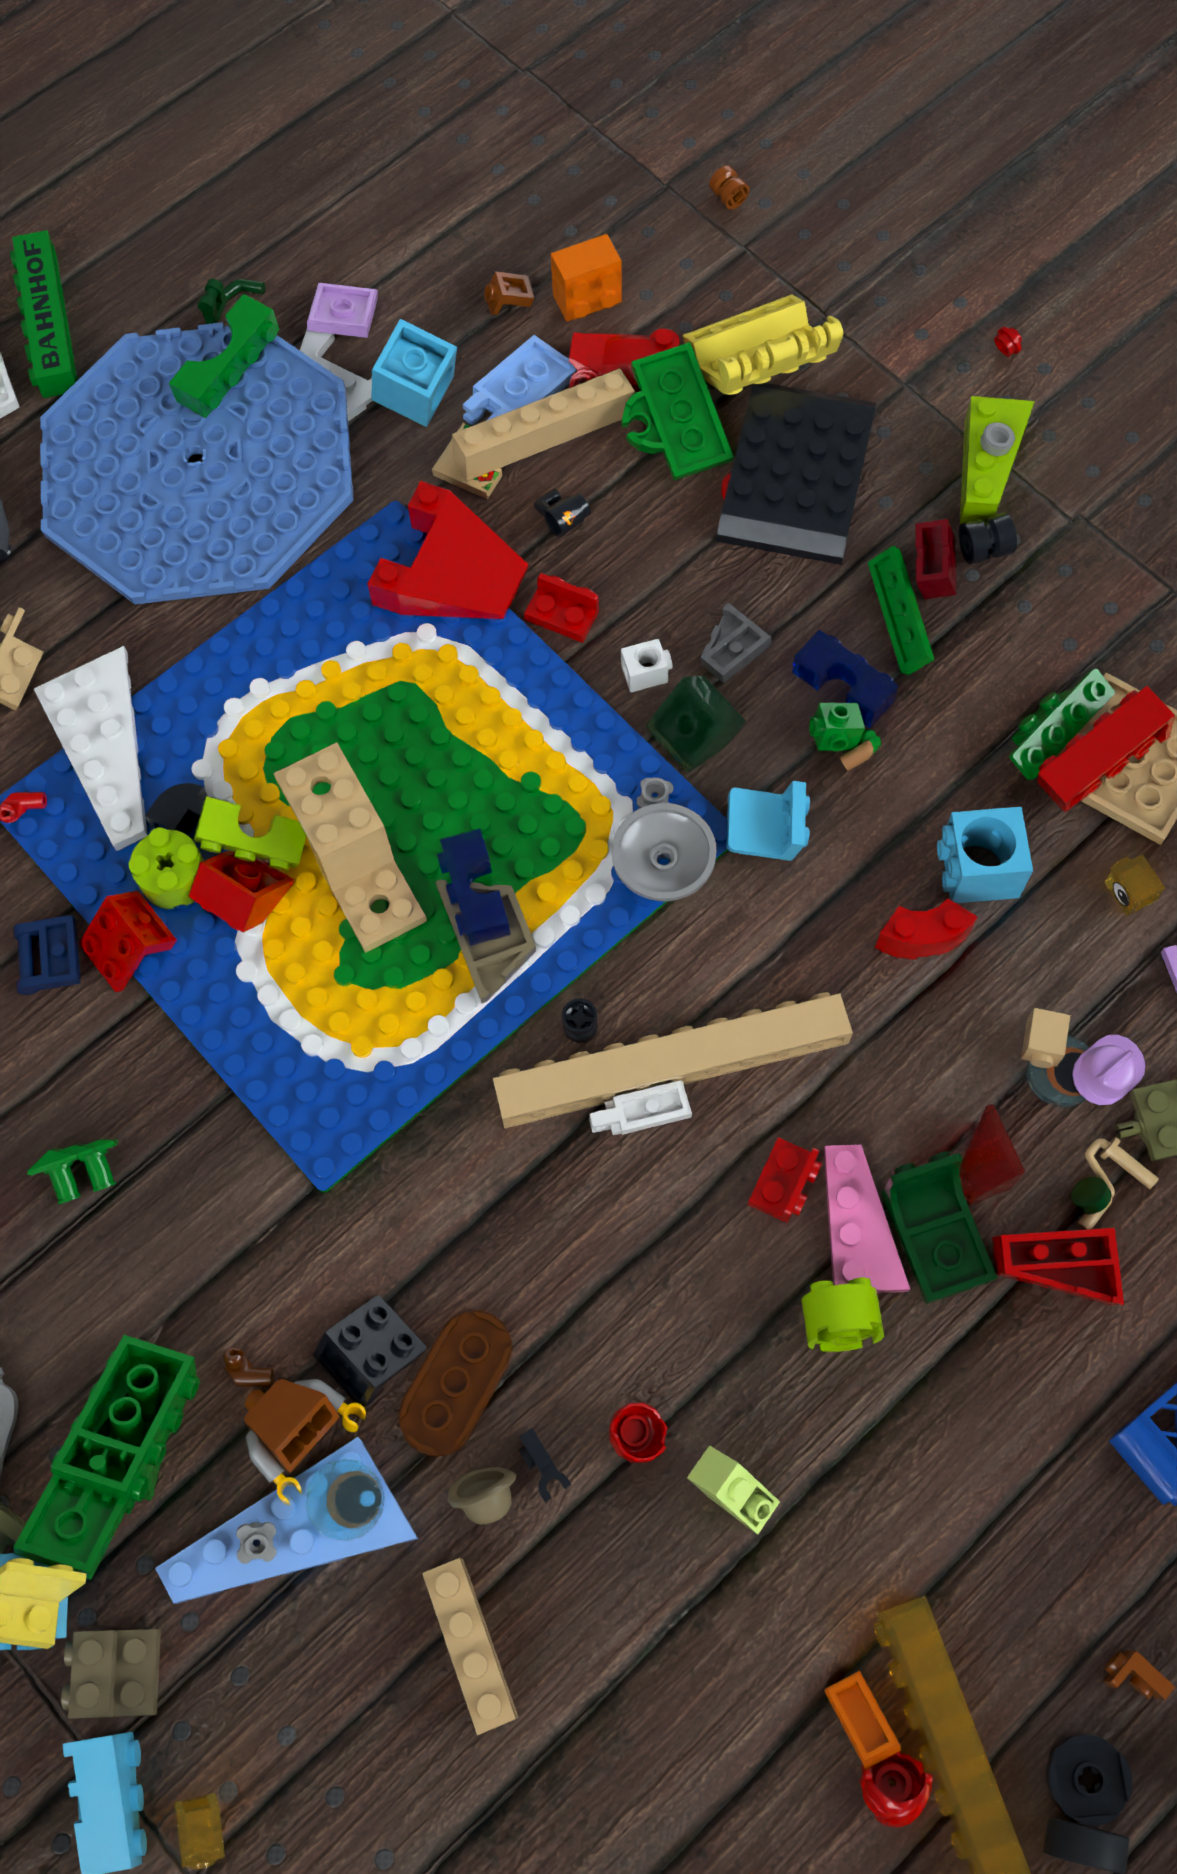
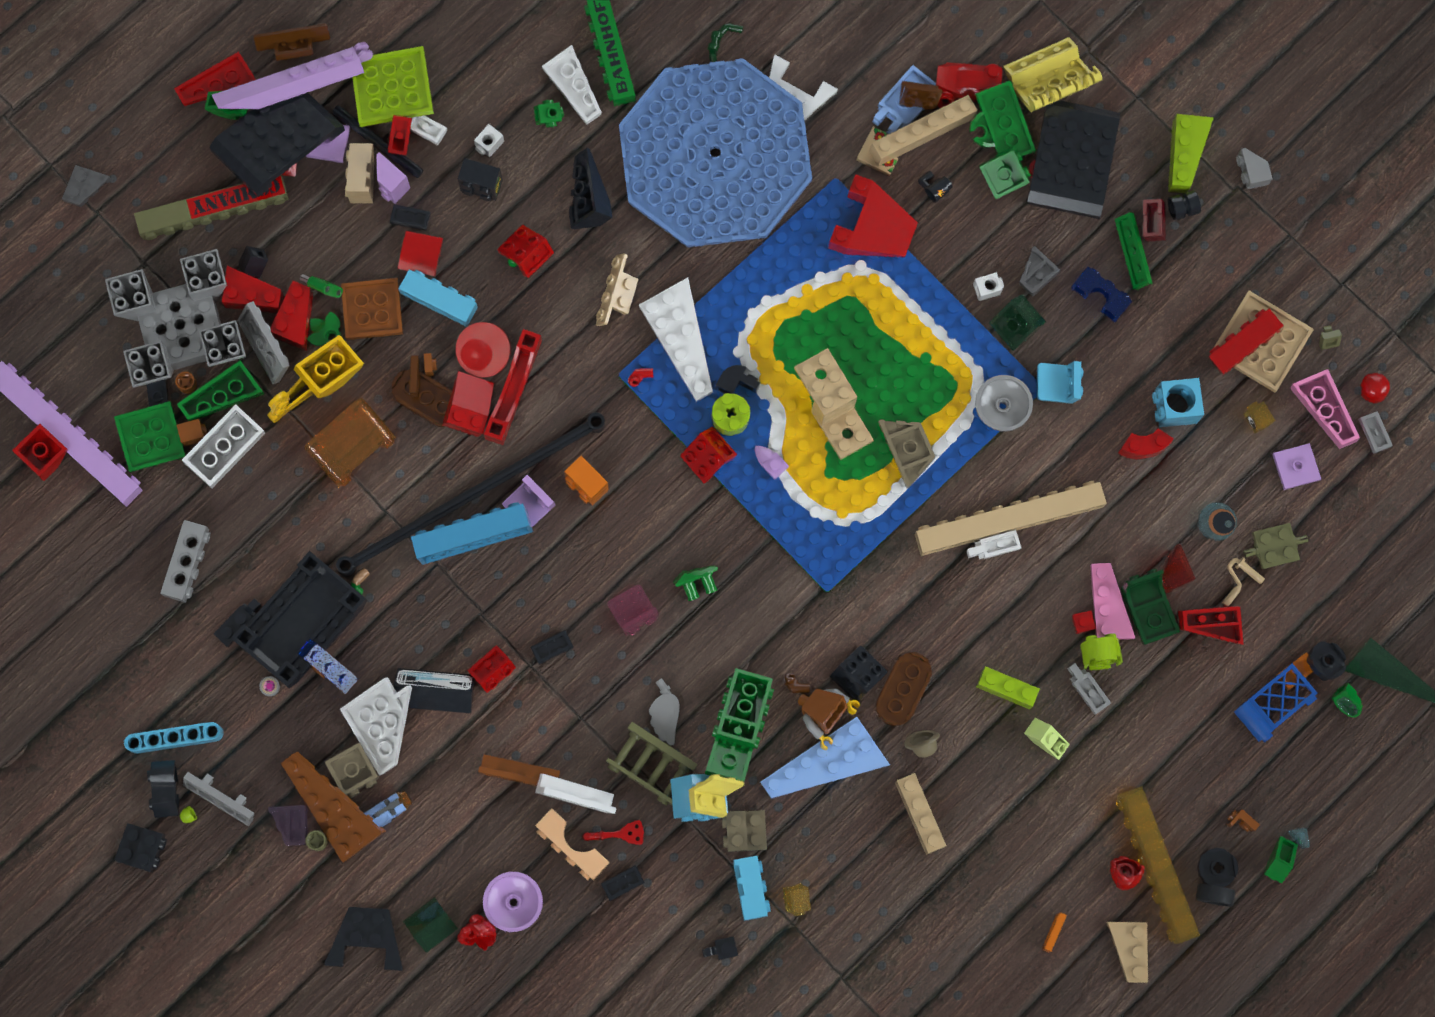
camera: 10 degrees left, 10 degrees up
(57, 954) = (670, 462): dark blue plate -> none
(205, 383) = (718, 107): green arch -> none
(220, 830) = (760, 392): lime arch -> none
(238, 954) = (770, 461): none -> lavender plate
(239, 889) = (770, 424): red slope -> none
(256, 1531) = (808, 763): light grey plate -> none
(342, 310) = (794, 47): lavender plate -> none
(344, 1500) = (854, 747): clear light blue tile -> none
(413, 372) = (845, 99): medium azure brick -> none
(481, 914) = (904, 441): clear blue arch -> none
(508, 289) = (895, 34): dark orange bracket -> none
(536, 1455) = (948, 723): black plate -> none
(538, 366) = (919, 95): none -> reddish brown bracket
(563, 607) = (938, 249): red bracket -> none
(579, 1012) = (962, 495): black wheel -> none
(586, 277) = (945, 29): orange brick -> none
(637, 1433) = (998, 712): red hair -> none
(651, 786) = (1001, 363): light grey plate -> none
(657, 1383) = (1007, 687): none -> lime brick
(679, 486) = (1005, 172): none -> green plate
(783, 1179) = (1070, 581): red bracket -> none
(810, 1257) = (1083, 622): none -> red plate
(818, 1390) = (1088, 689): none -> light grey hinge
(836, 726) = (1097, 325): green brick -> none
(862, 1720) = (1110, 843): orange tile -> none
(869, 745) = (1112, 339): medium nougat arm -> none
(997, 439) = (1191, 145): light grey tile -> none
(1008, 341) = (1199, 70): red plate -> none
(1045, 1038) = (1208, 505): tan brick -> none
(1058, 722) = (1220, 322): green bracket -> none
(1091, 1195) = (1229, 588): dark green tile -> none
(1107, 485) = (1254, 169): none -> light grey slope
(1108, 1070) = (1241, 520): lavender piece -> none

